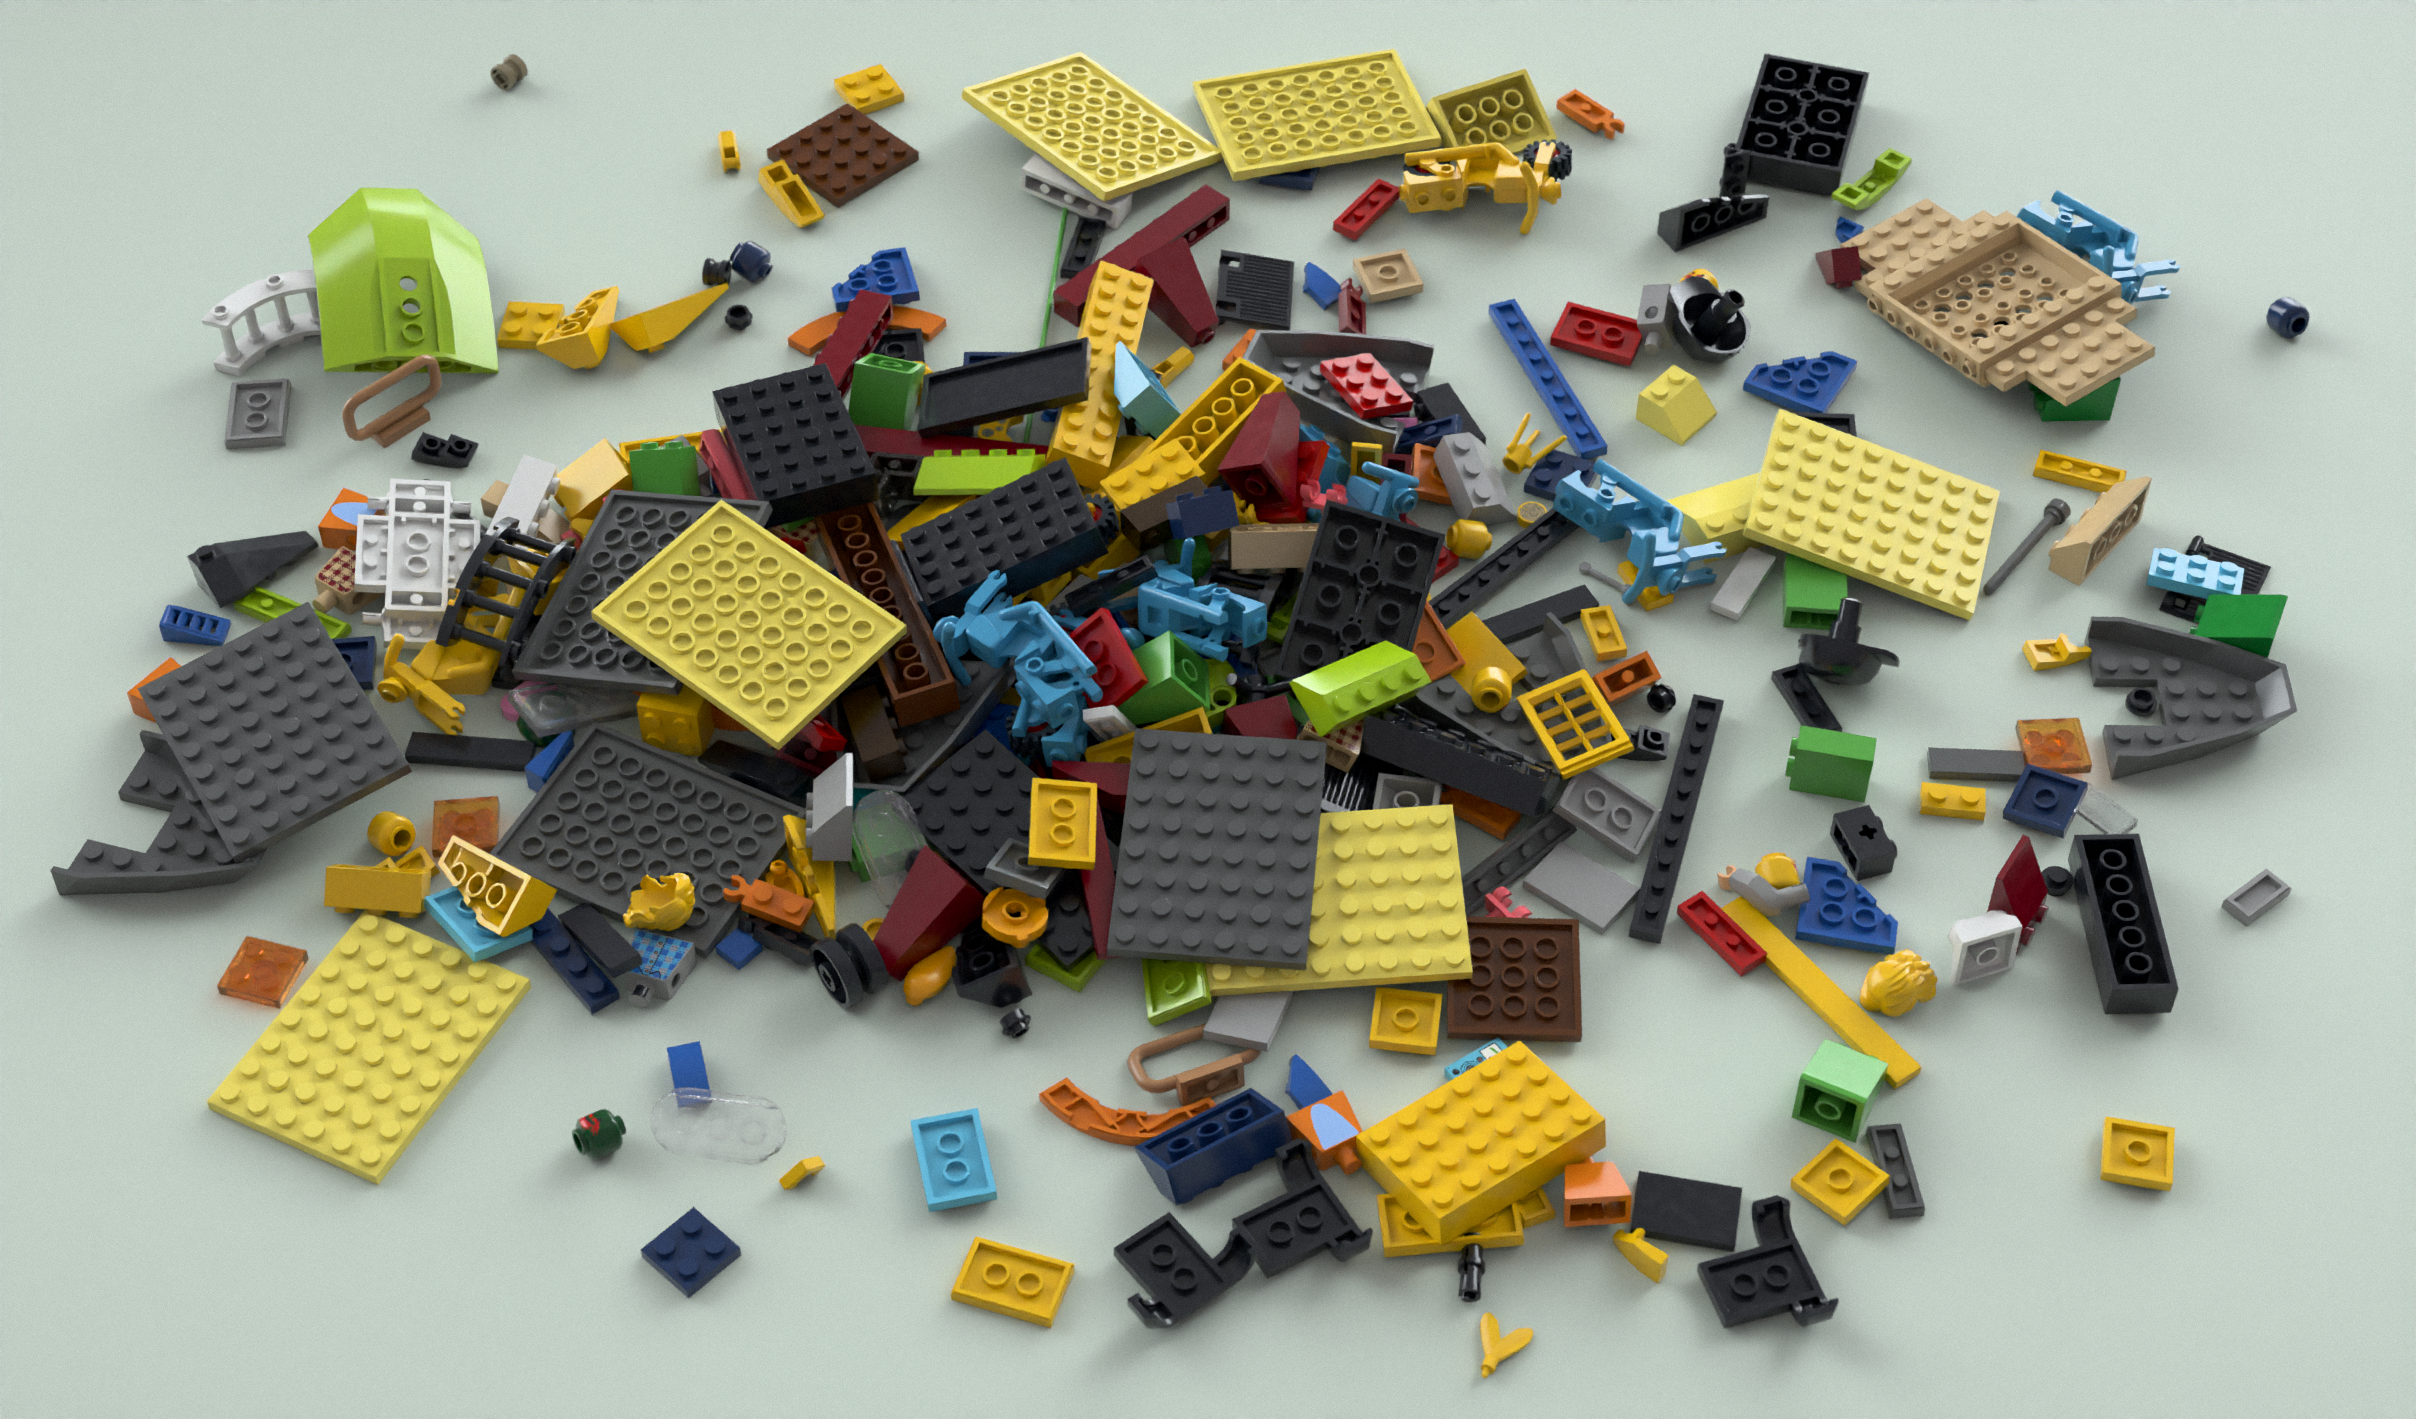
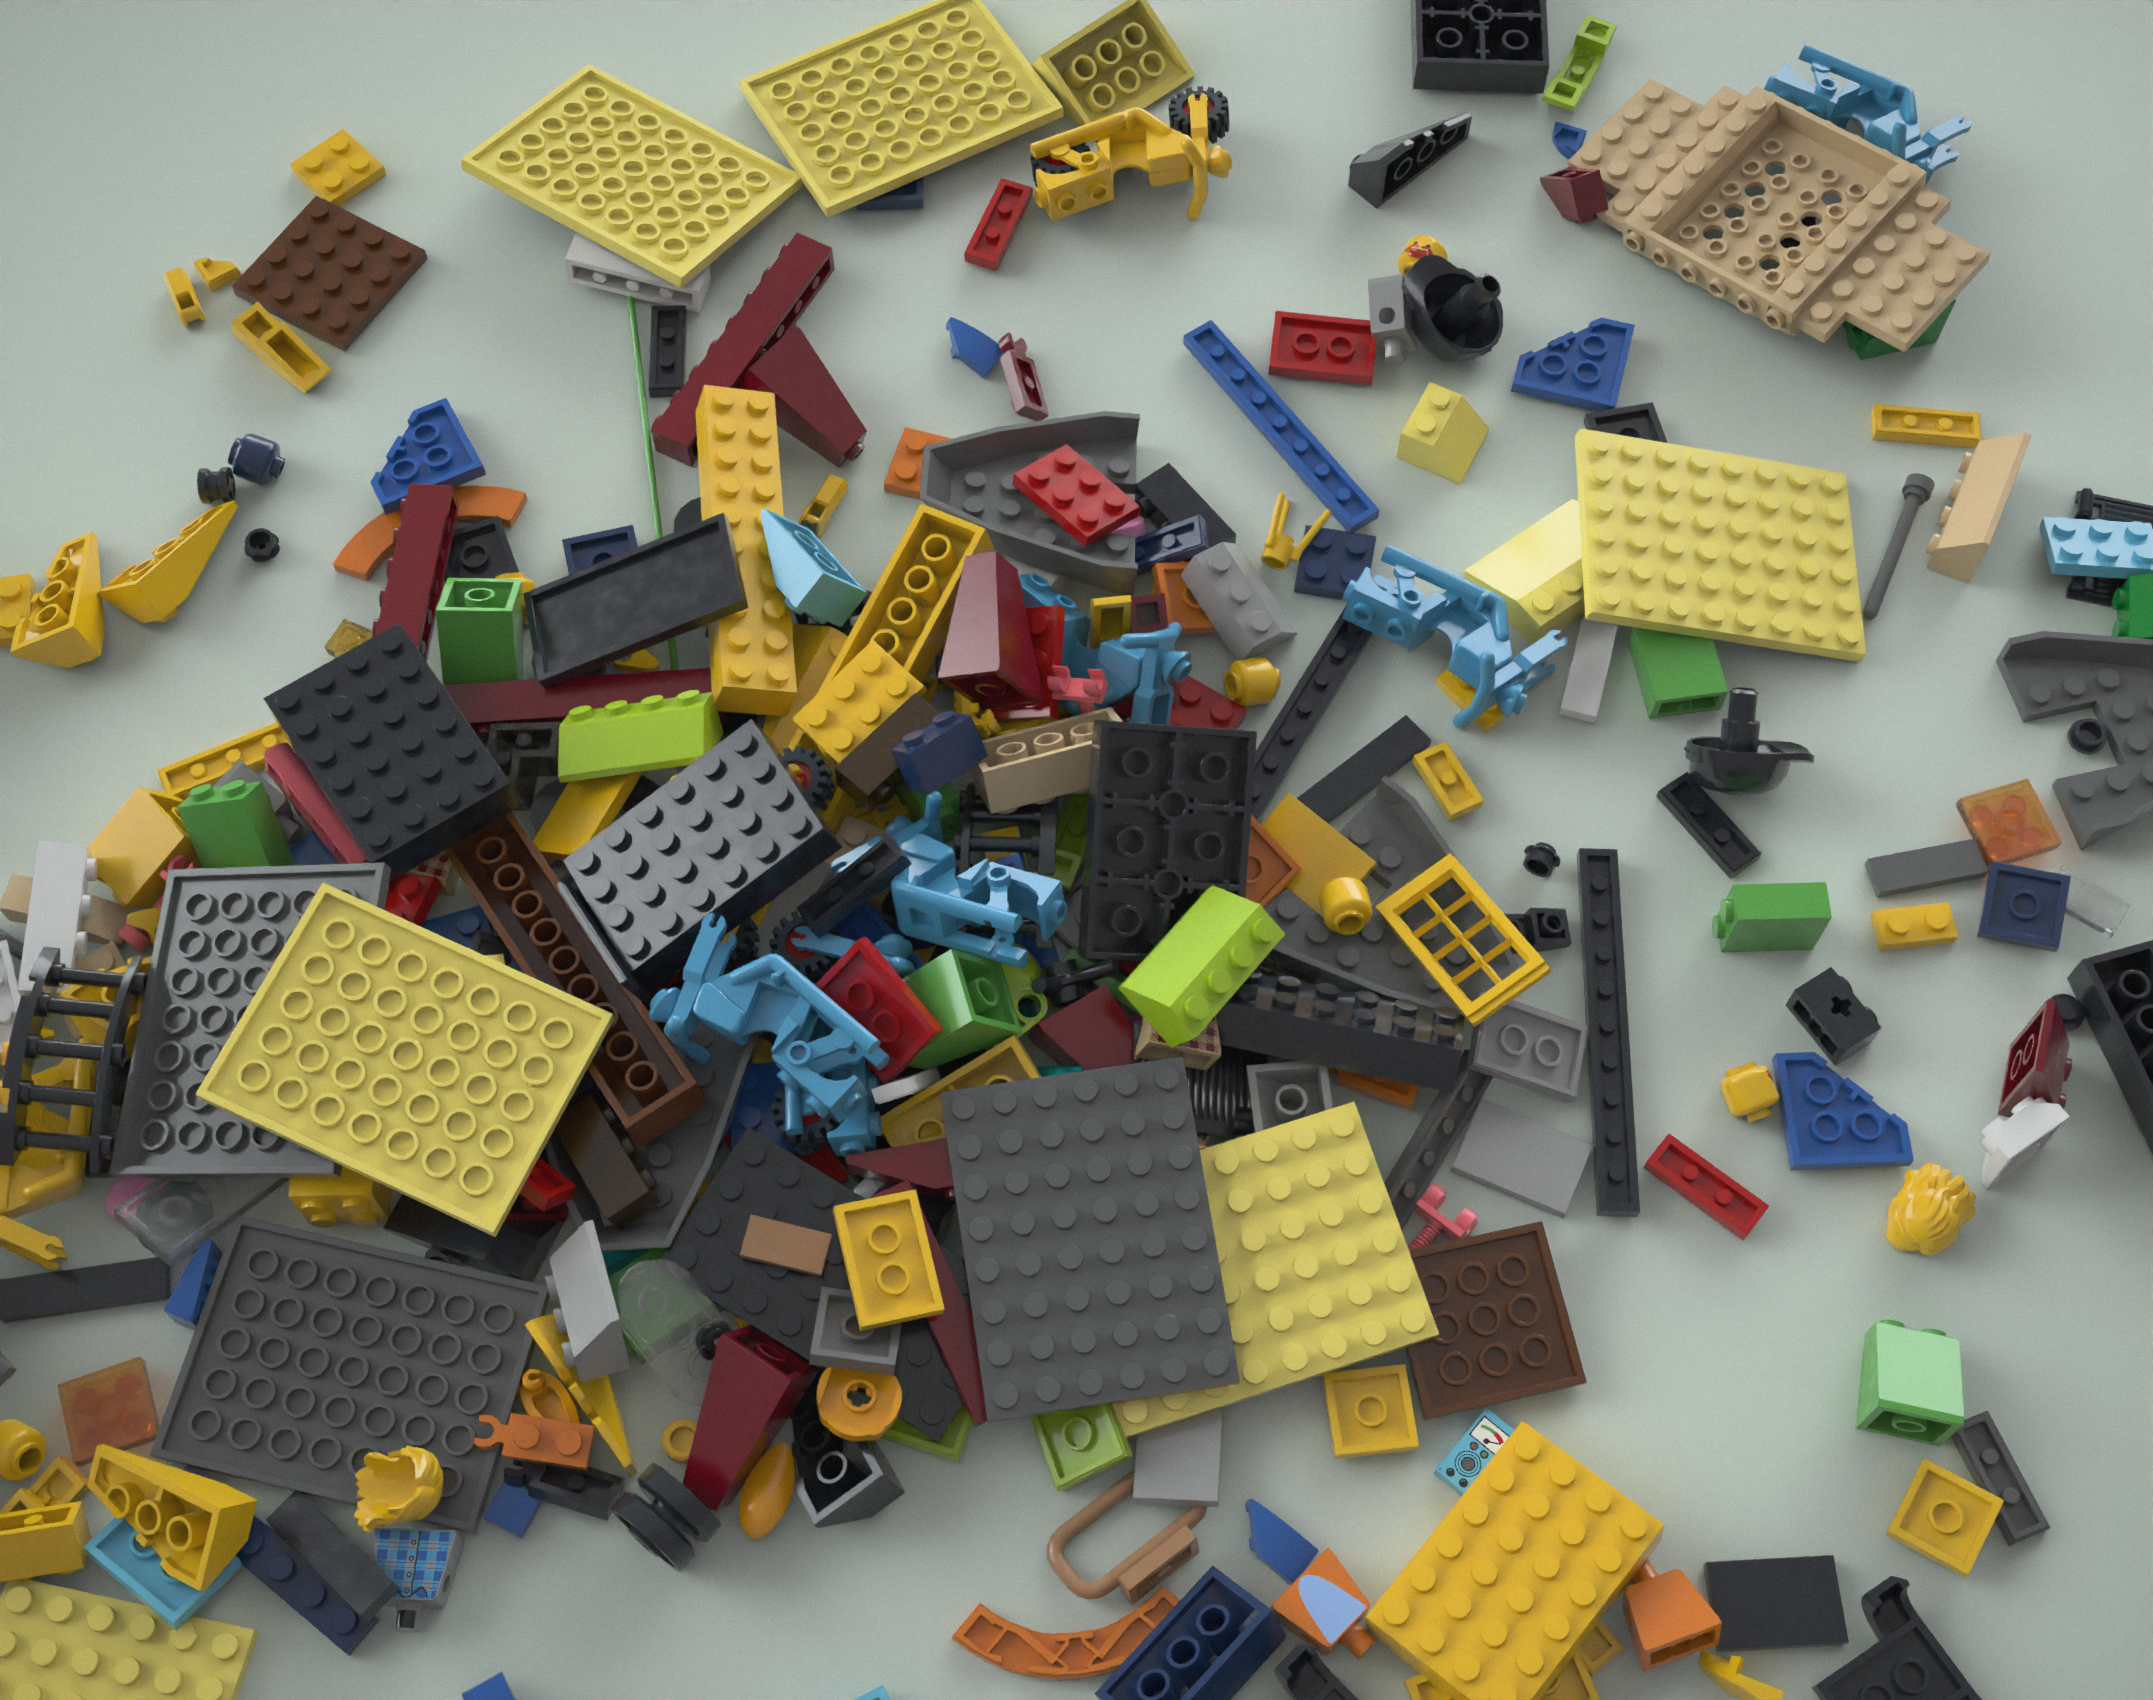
camera: 15 degrees left, 15 degrees up
(757, 141) = (216, 273): none -> yellow tile
(990, 807) = (786, 1245): none -> medium nougat tile
(1015, 1023) = (894, 1538): black plate -> none
(1257, 290) = (896, 367): black window -> none
(1388, 275) = (1050, 315): tan plate -> none
(1529, 513) = (1314, 626): tile -> none
(1585, 568) = (1398, 688): light grey hinge -> none
(1590, 113) = (1226, 33): orange plate -> none
(1627, 679) = (1498, 849): orange brick -> none
(1734, 171) = (1420, 87): black hinge -> none
(1761, 893) = (1738, 1123): light grey arm -> none
(1823, 994) = (1843, 1242): yellow tile -> none
(2053, 654) = (1968, 688): yellow slope -> none
(2287, 317) = (2098, 161): dark blue head -> none

